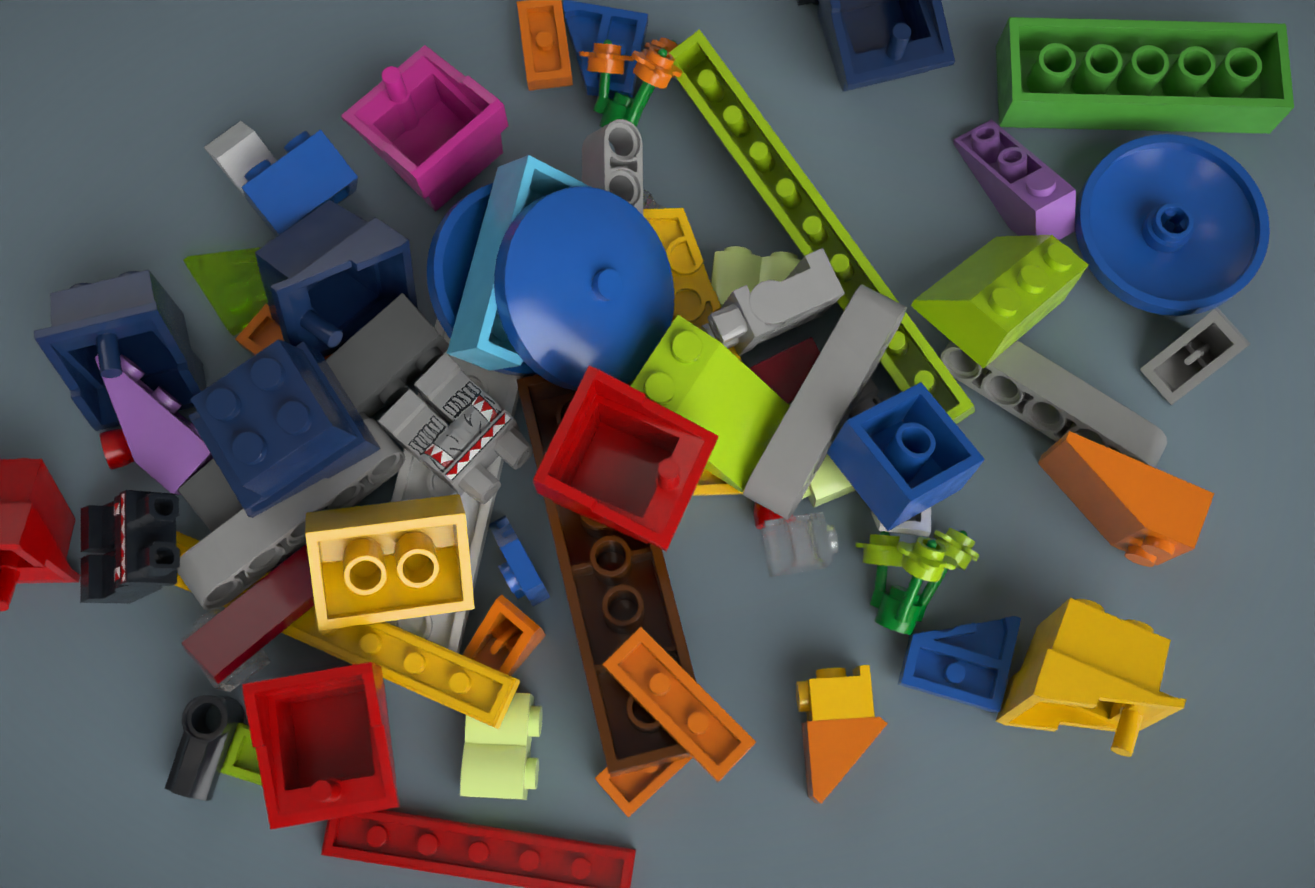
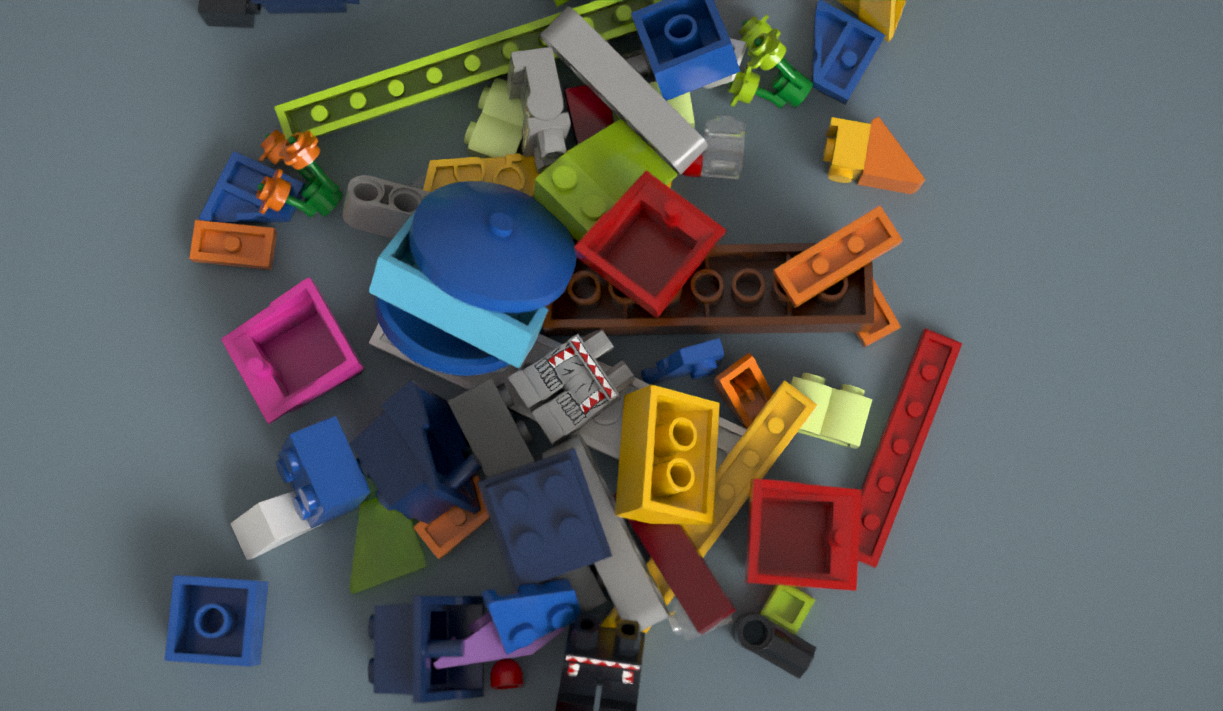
camera: 75 degrees left, 5 degrees up
(123, 127) = (216, 621): none -> blue brick
(170, 443) = (531, 612): none -> blue wing

